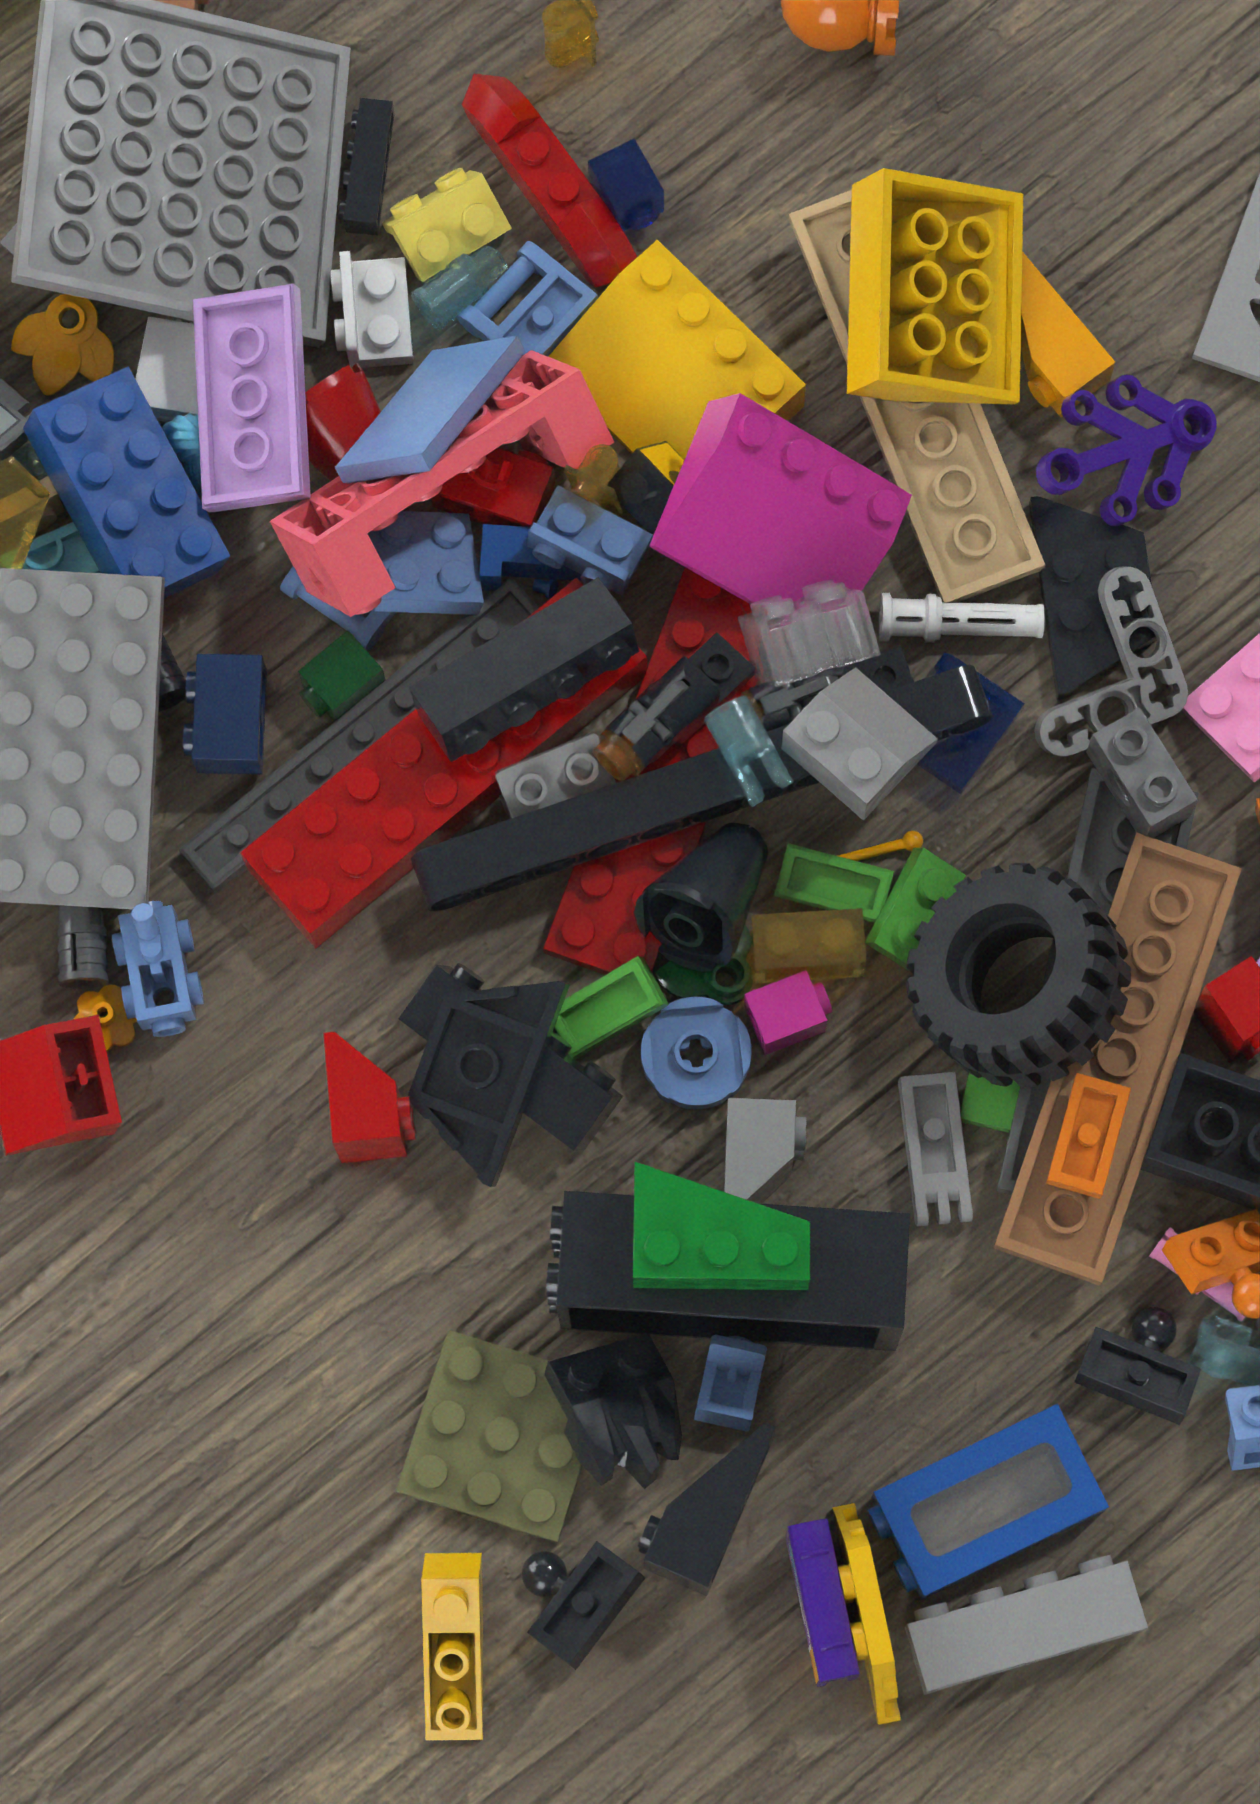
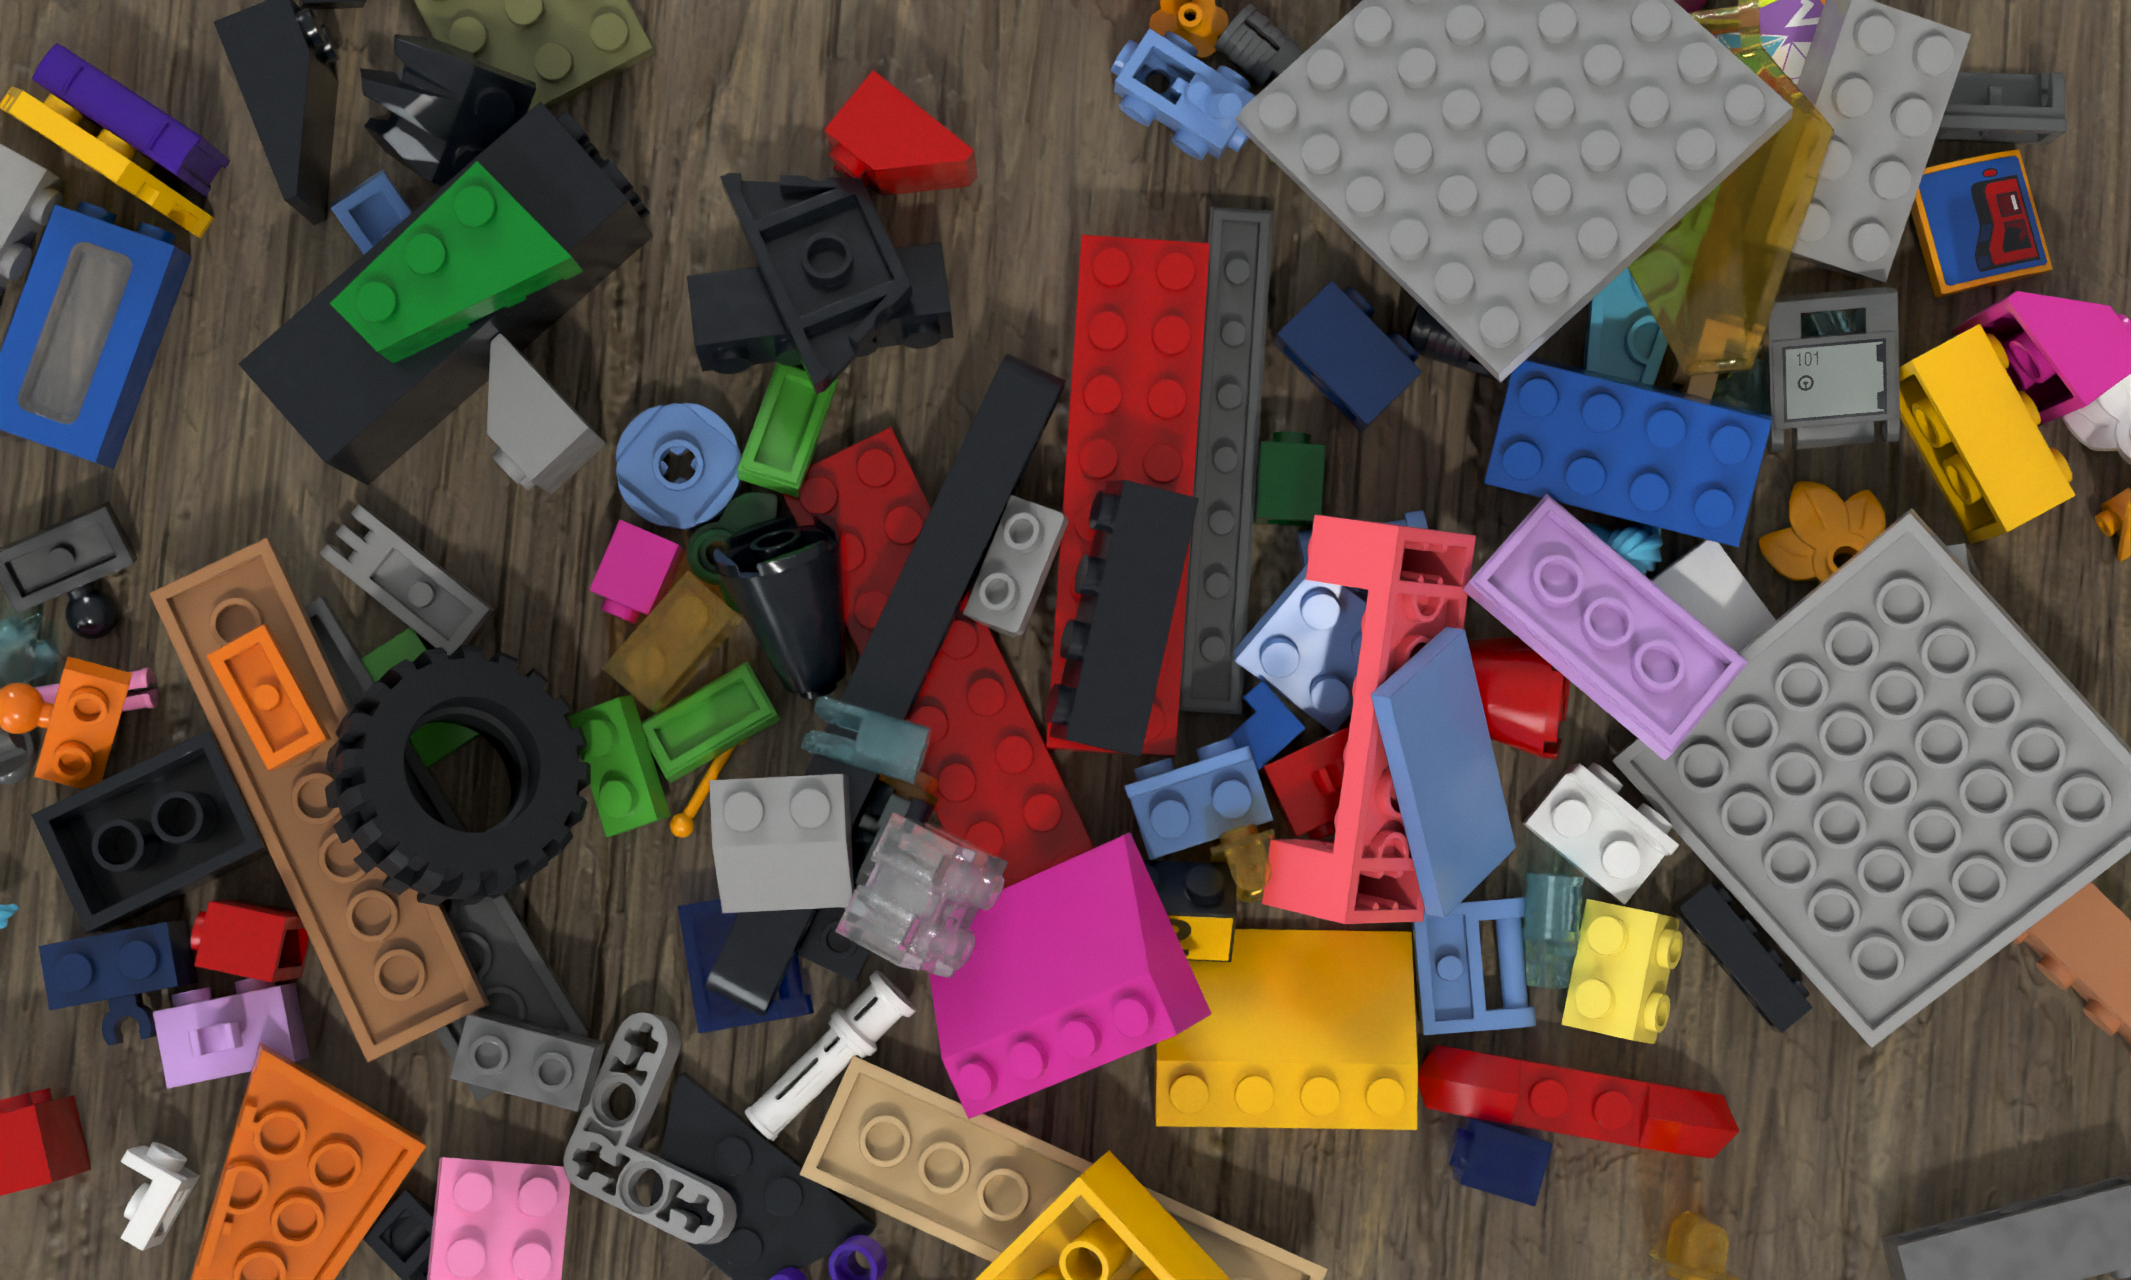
camera: 130 degrees right, 10 degrees up
(545, 587) = (1205, 736): blue piece -> none
(672, 708) = (977, 722): black plate -> none

